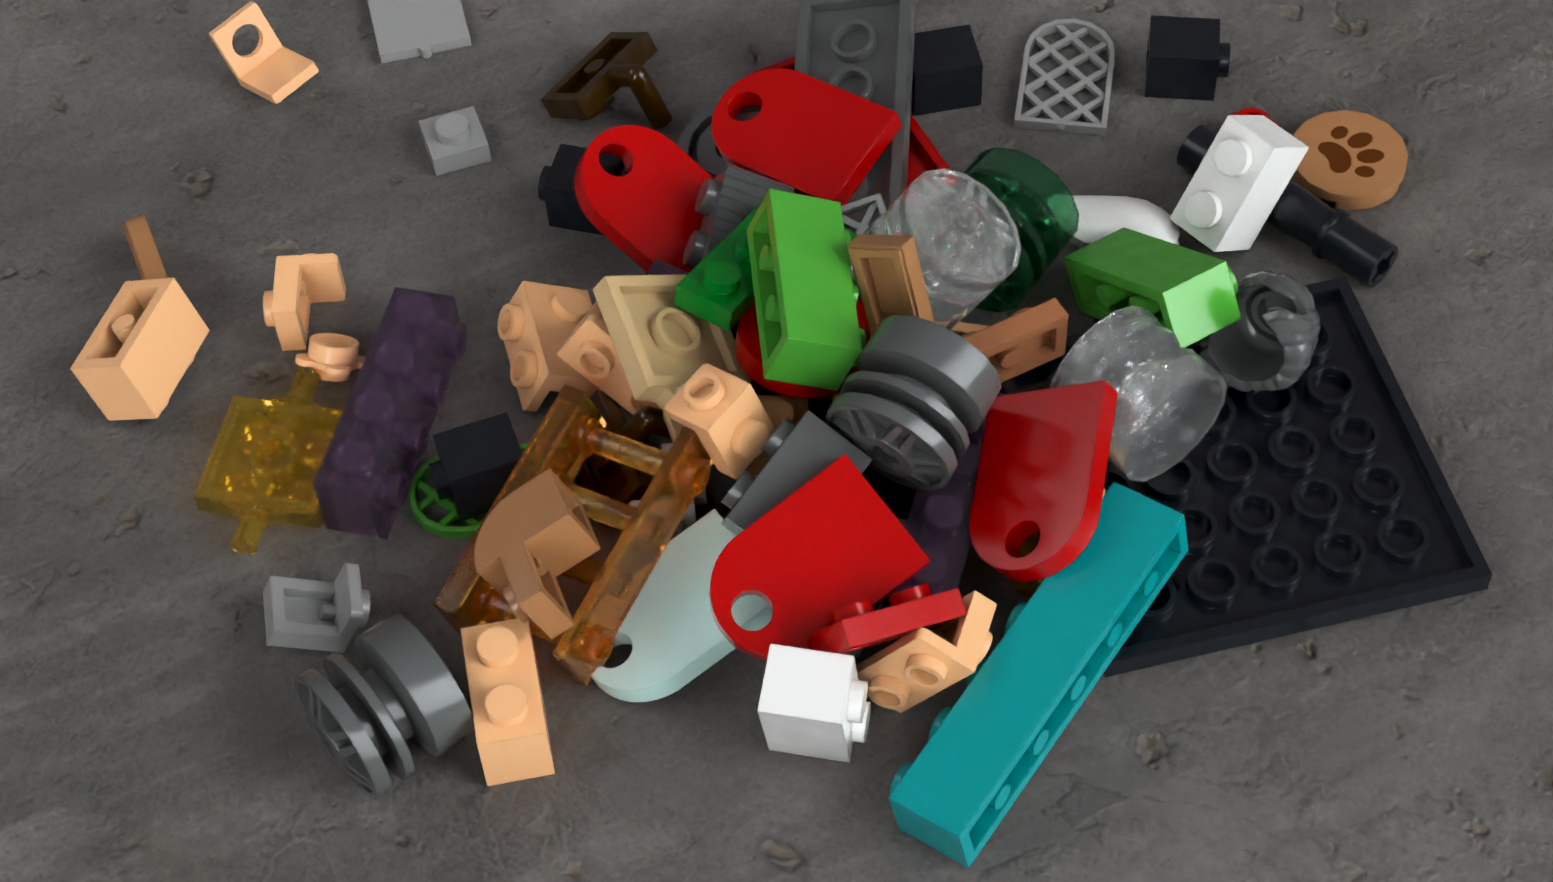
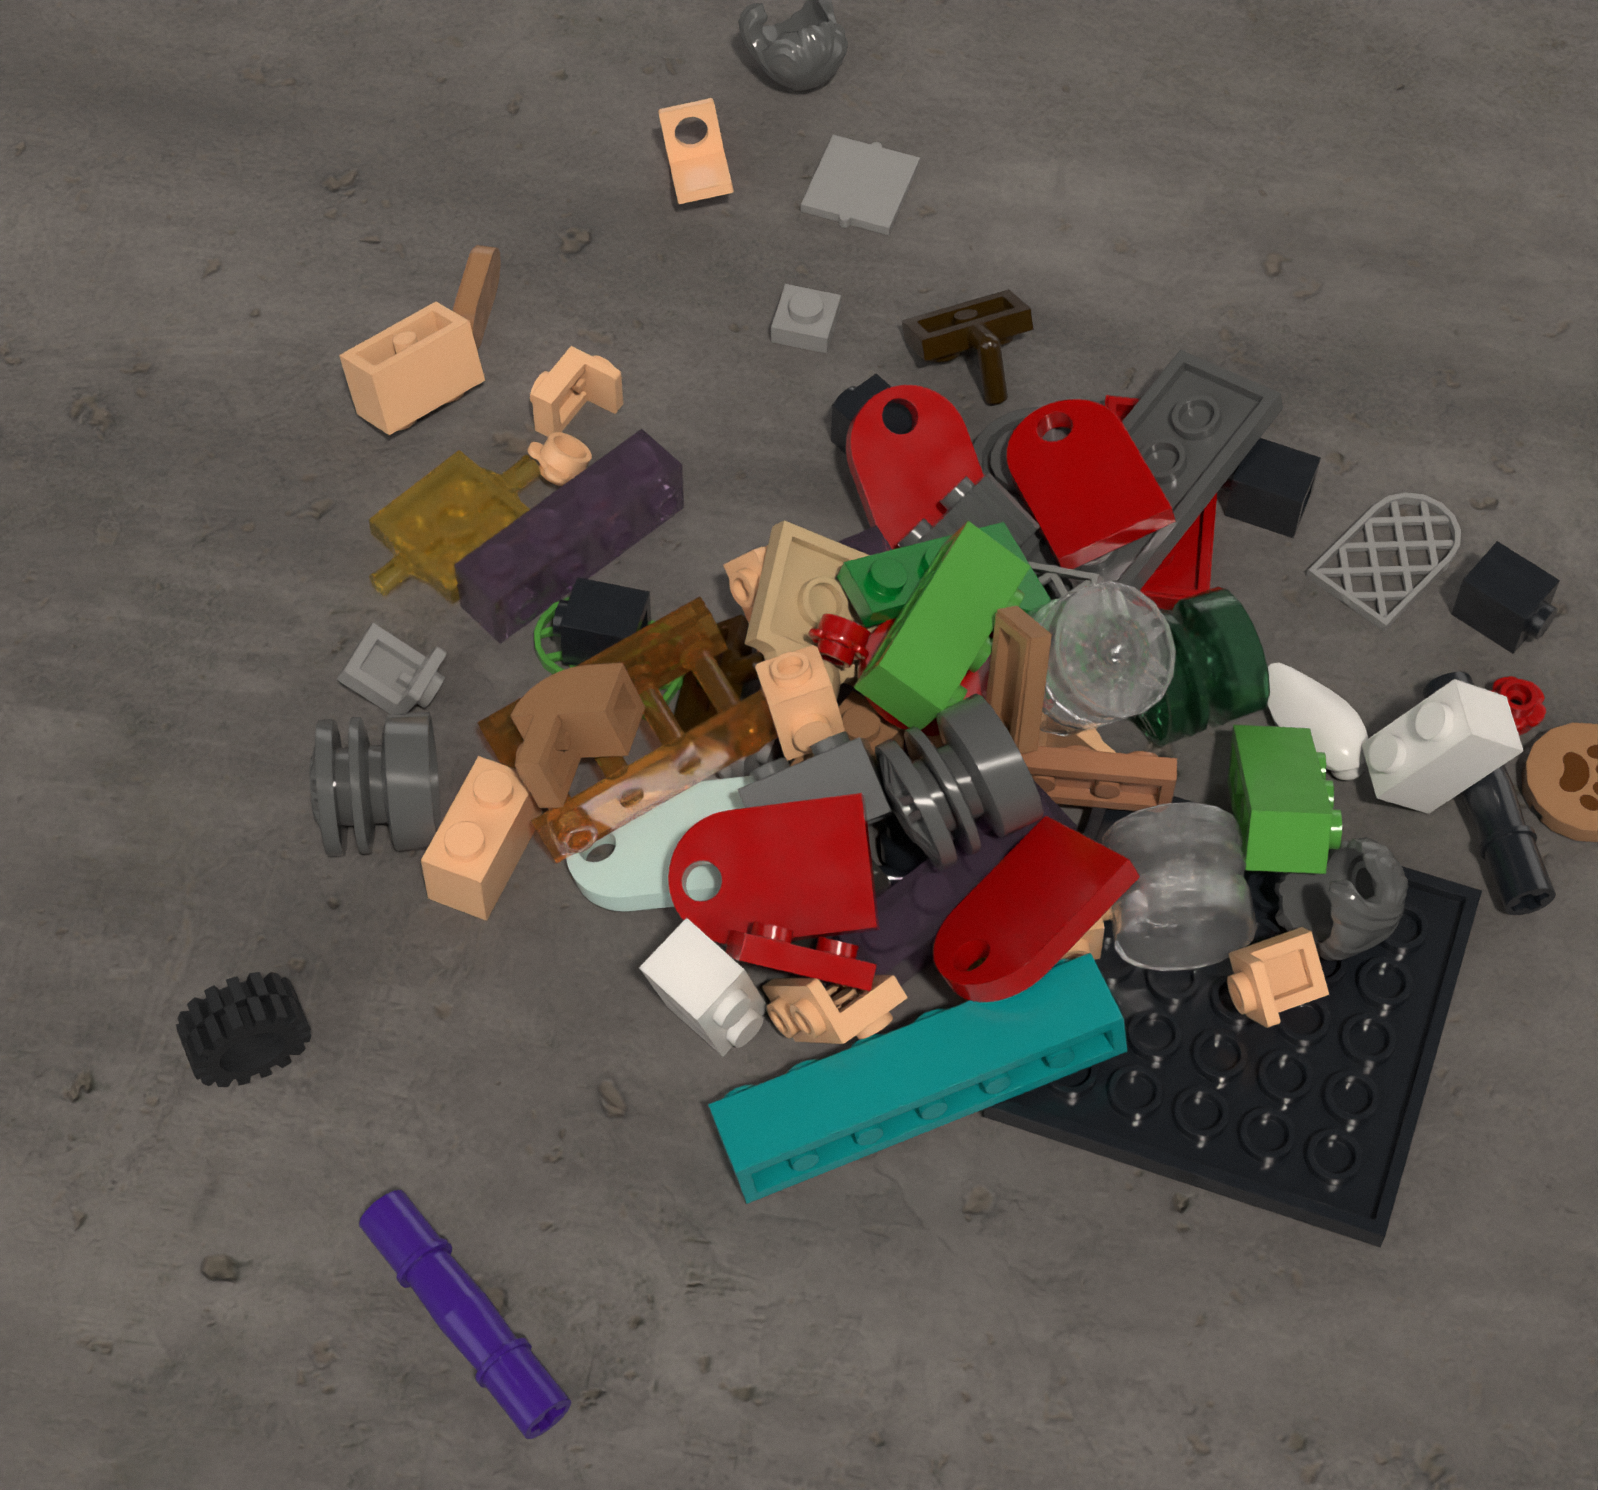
camera: 30 degrees right, 5 degrees up
(534, 331) = (739, 526): light nougat bracket -> none
(719, 347) = (840, 640): none -> red plate
(1259, 422) = (1276, 976): none -> light nougat bracket

